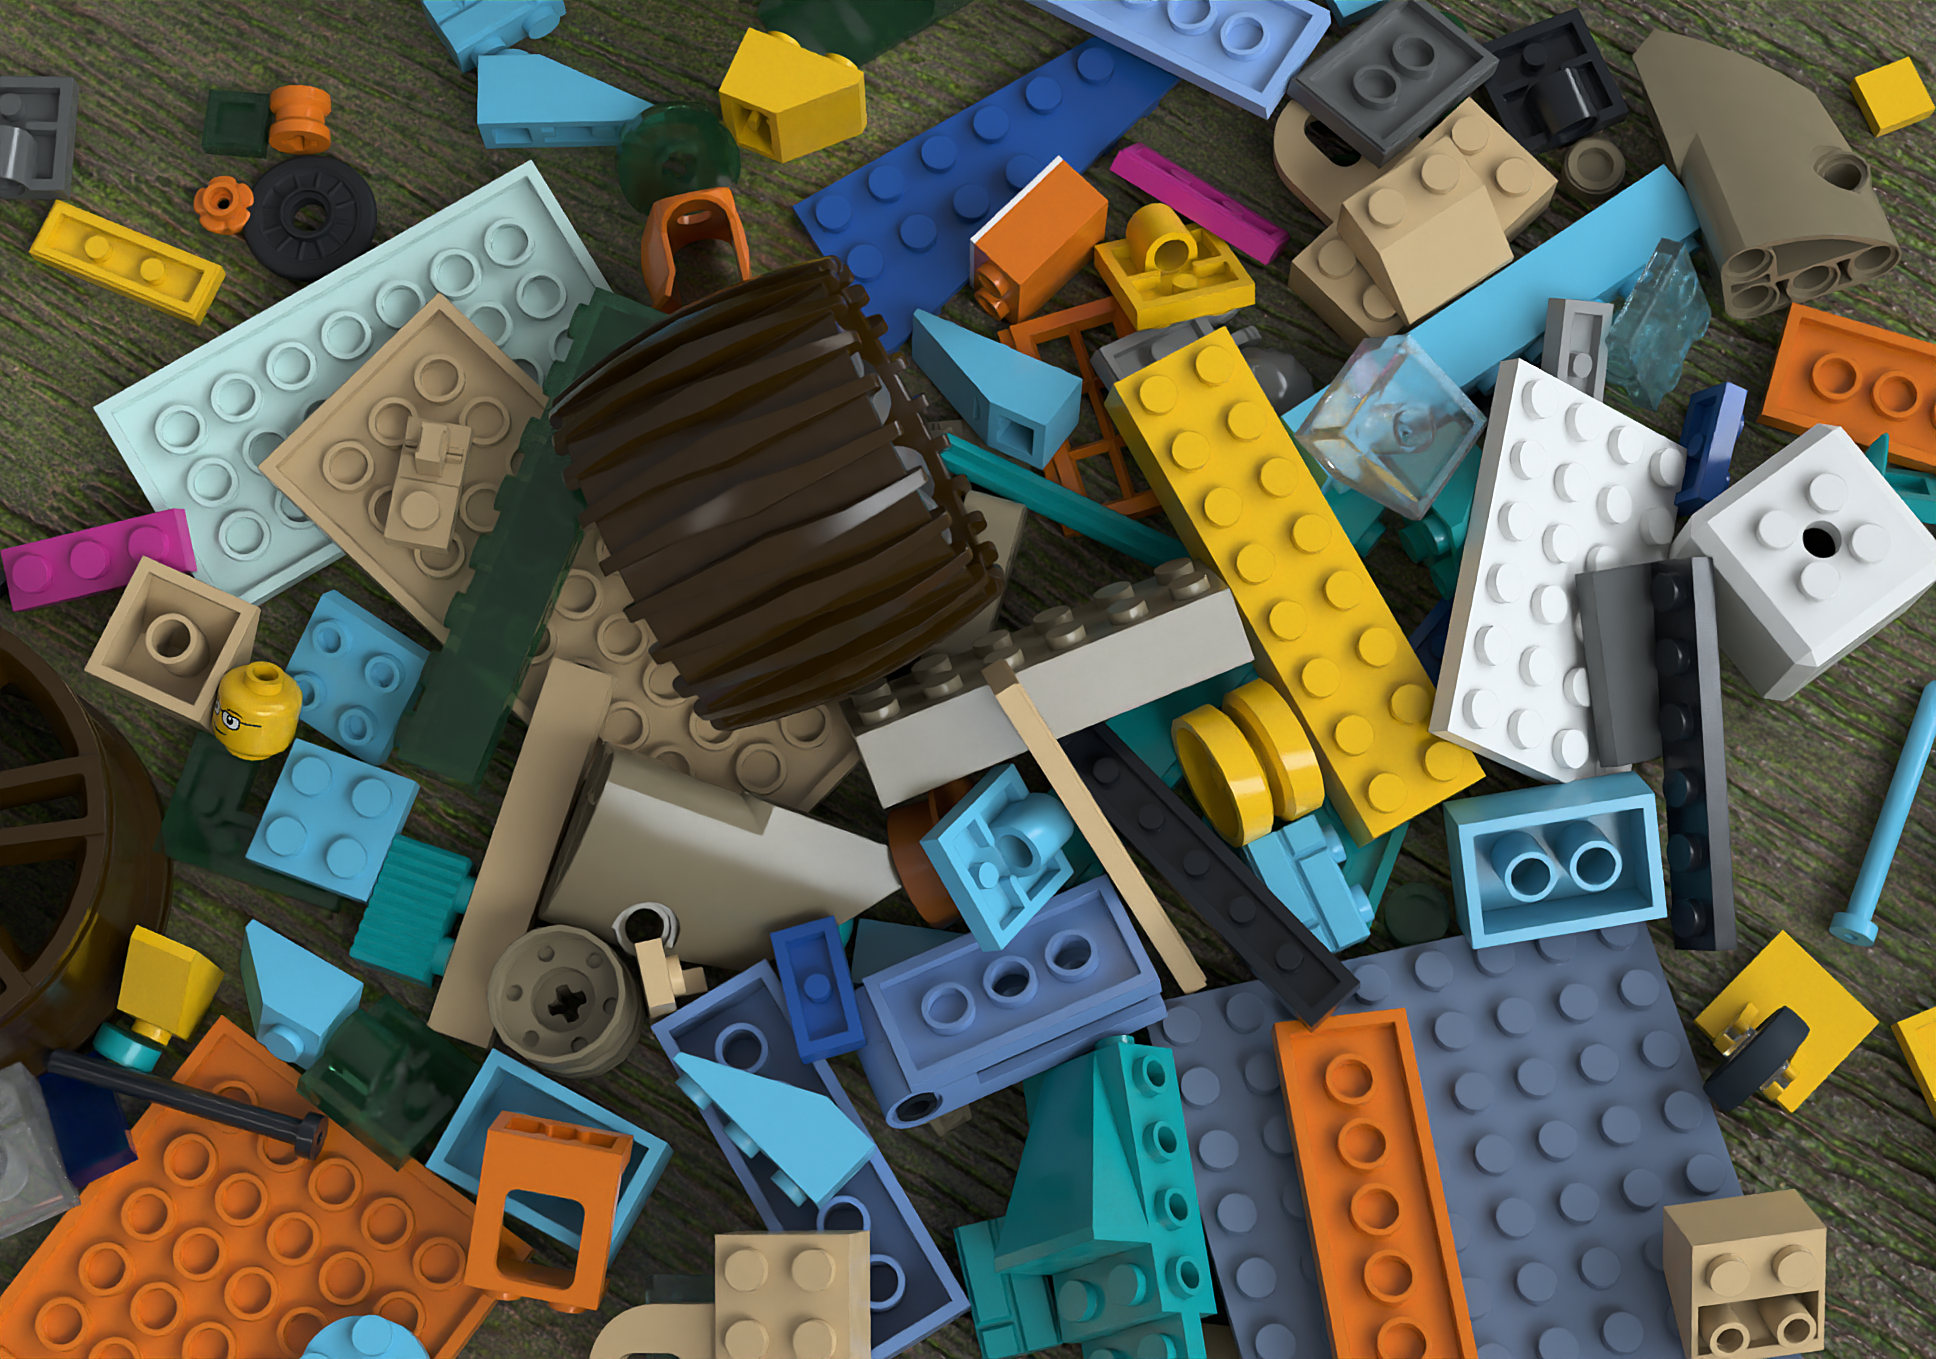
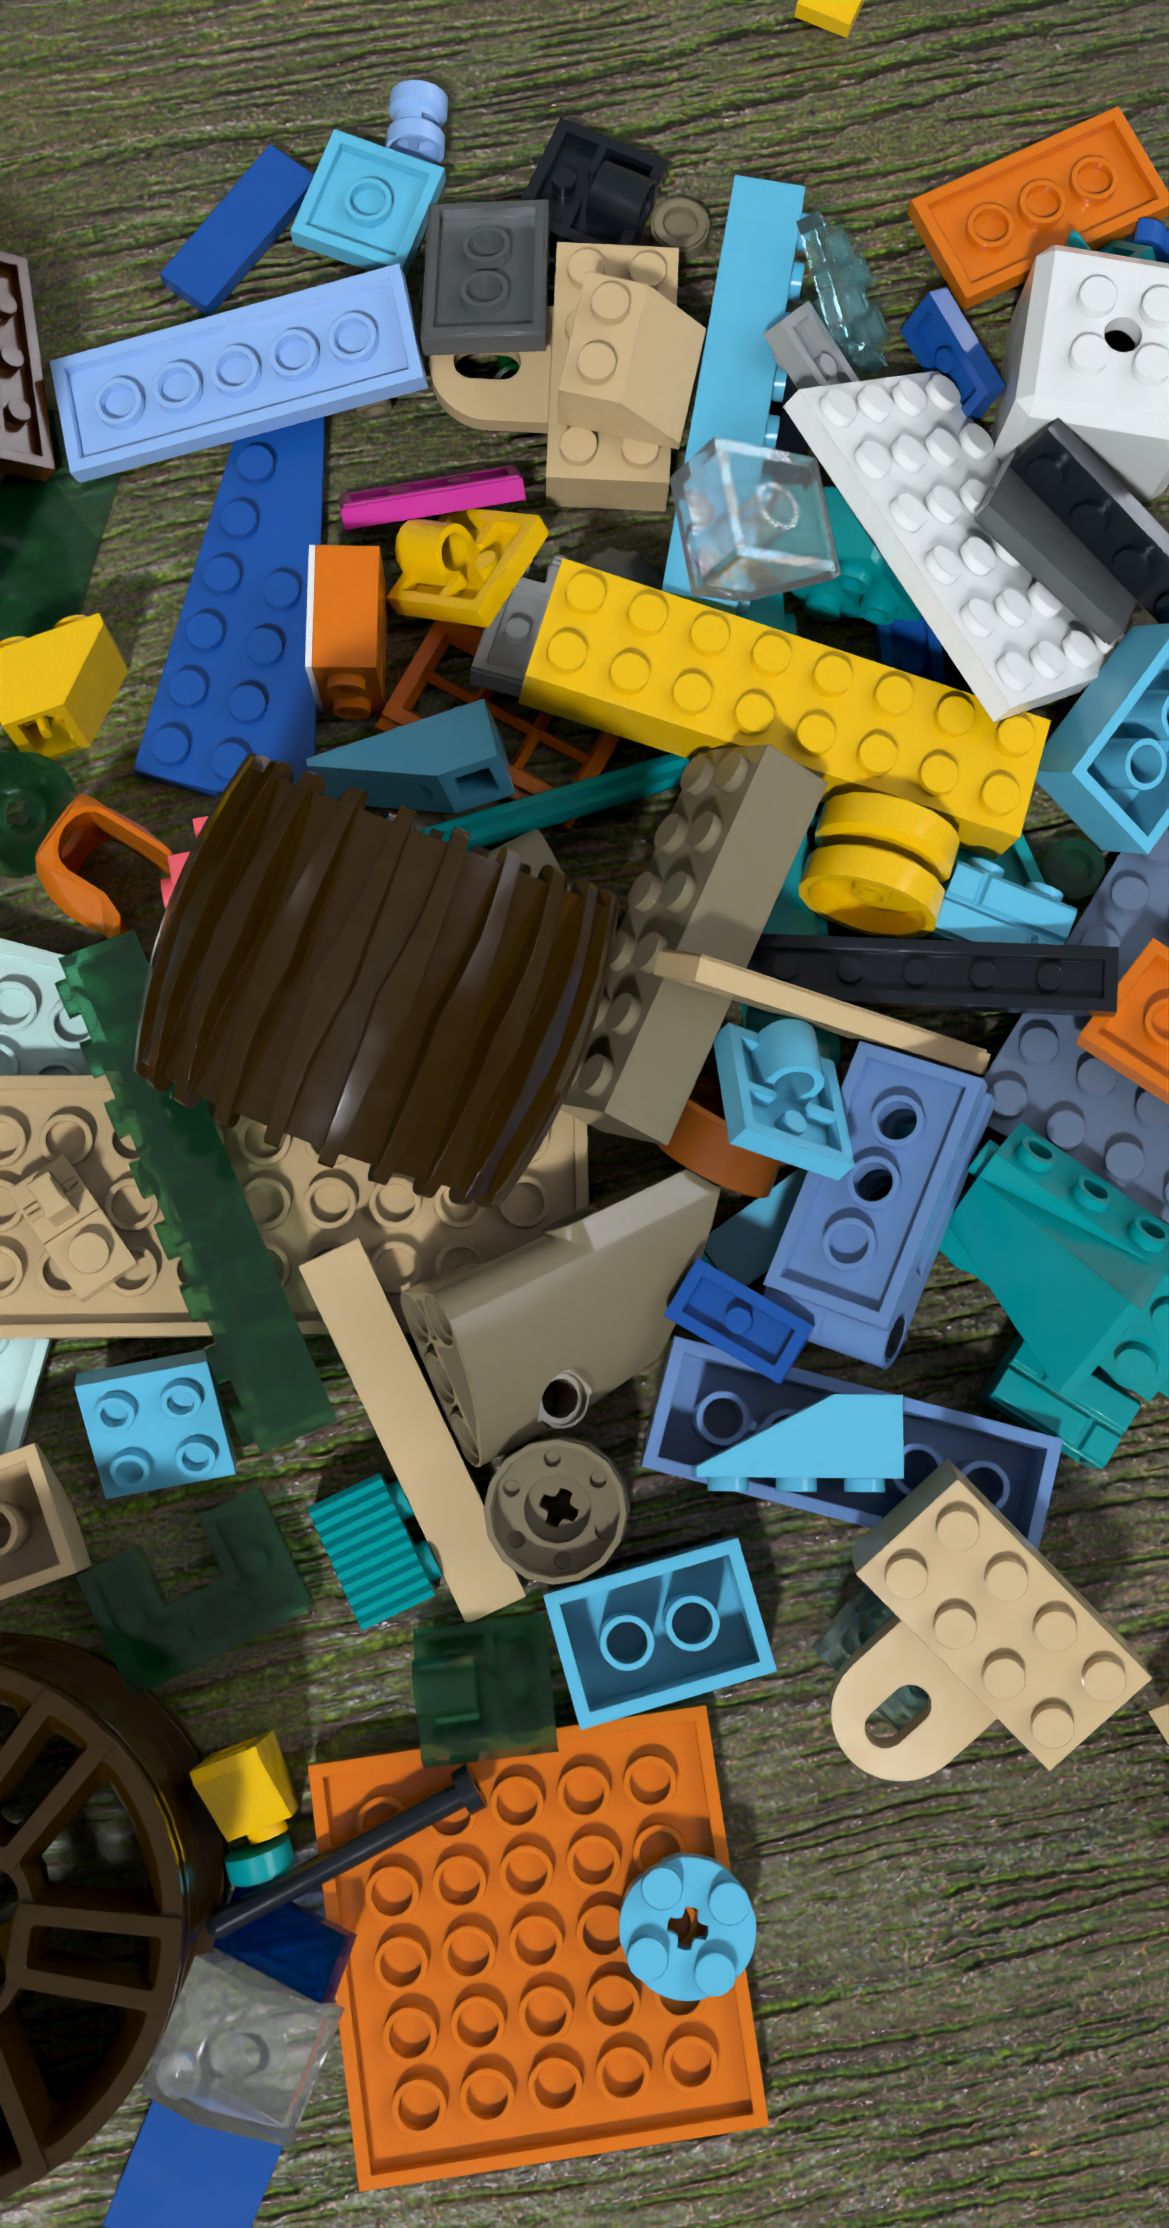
camera: 50 degrees left, 5 degrees up
(256, 710) = (109, 1520): yellow head -> none
(293, 995) = (349, 1700): medium azure slope -> none
(332, 821) = (248, 1545): medium azure plate -> none
(552, 1161) = (680, 1633): orange window -> none
(664, 982) = (615, 1425): tan hinge -> none
(1767, 174) = (807, 119): dark tan panel -> none

